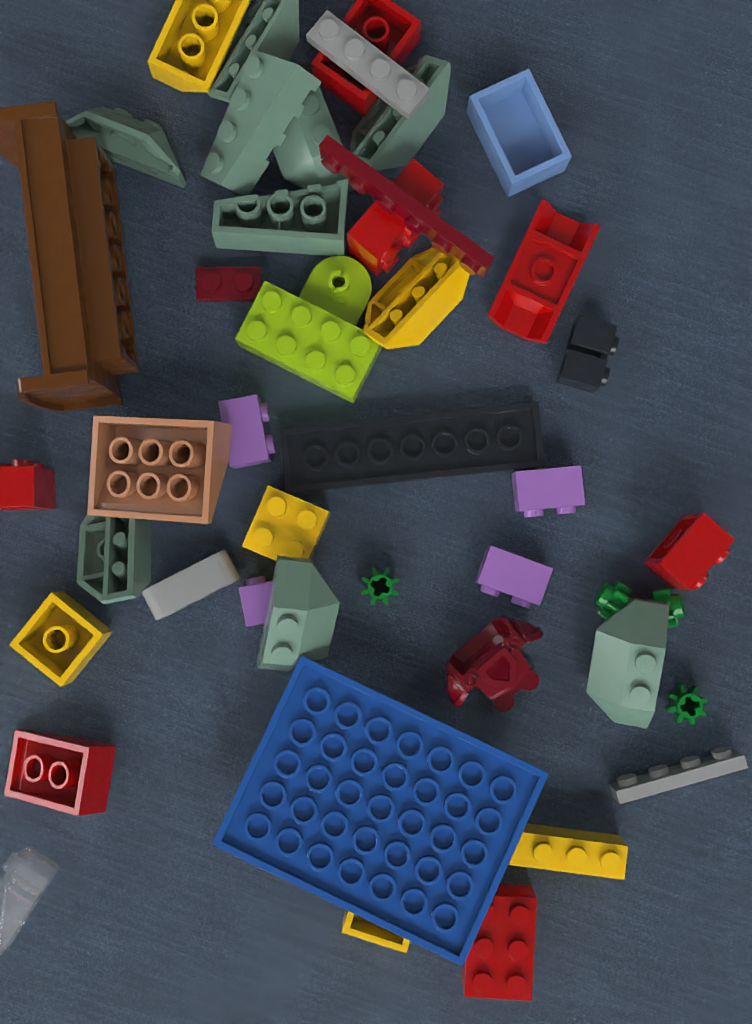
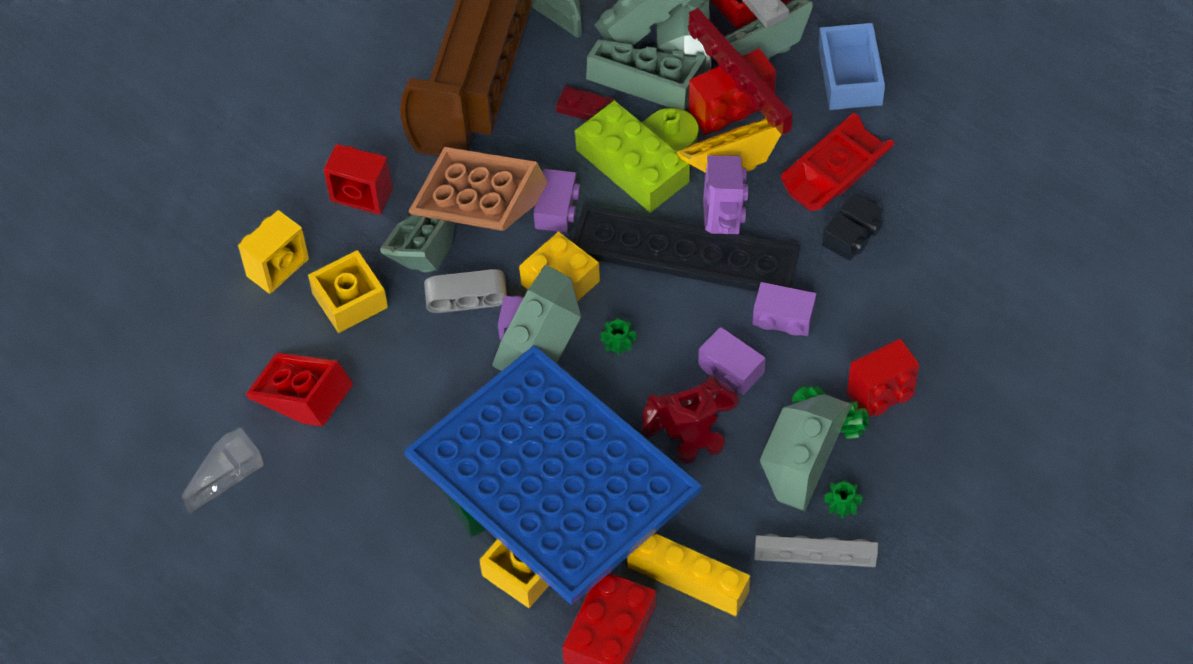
camera: 20 degrees right, 30 degrees down
(439, 374) = (724, 194): none -> medium lavender hinge

